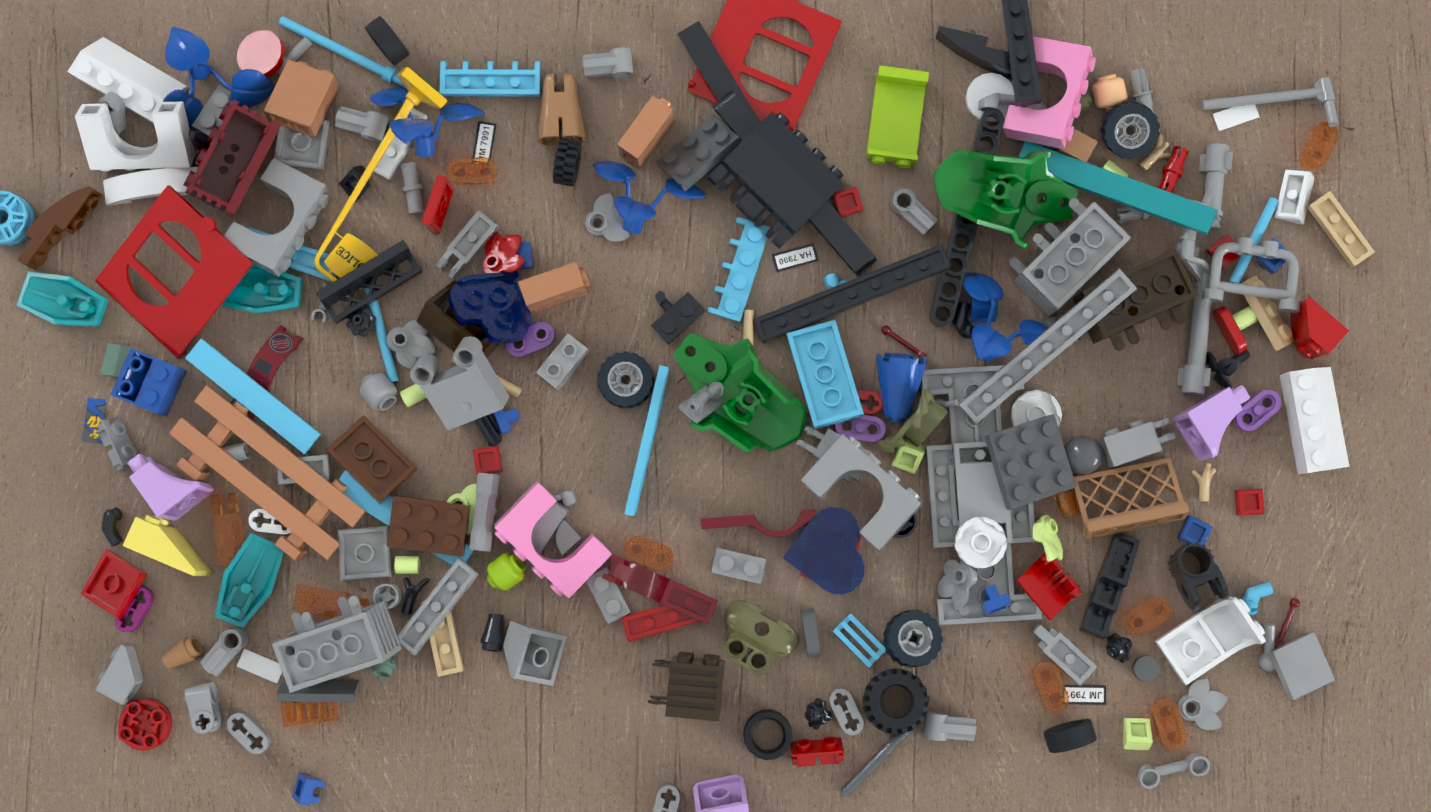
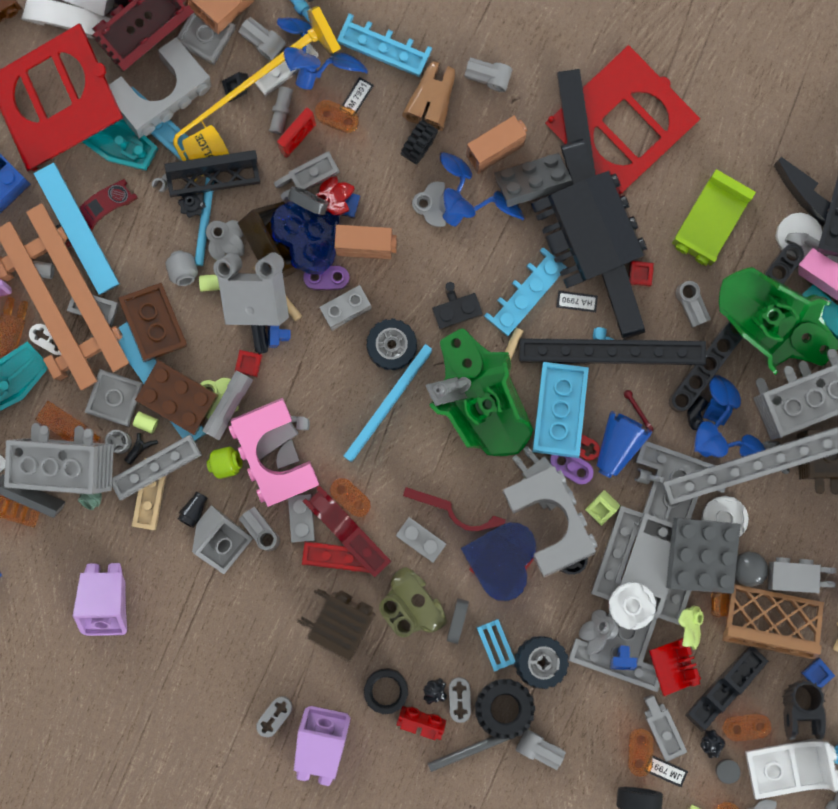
camera: 20 degrees right, 0 degrees up
(439, 767) = (101, 601): none -> lavender hips
(479, 269) = (308, 200): none -> dark grey beam
(568, 624) = (258, 528): none -> light grey piece
(918, 425) = (621, 485): olive piece -> none

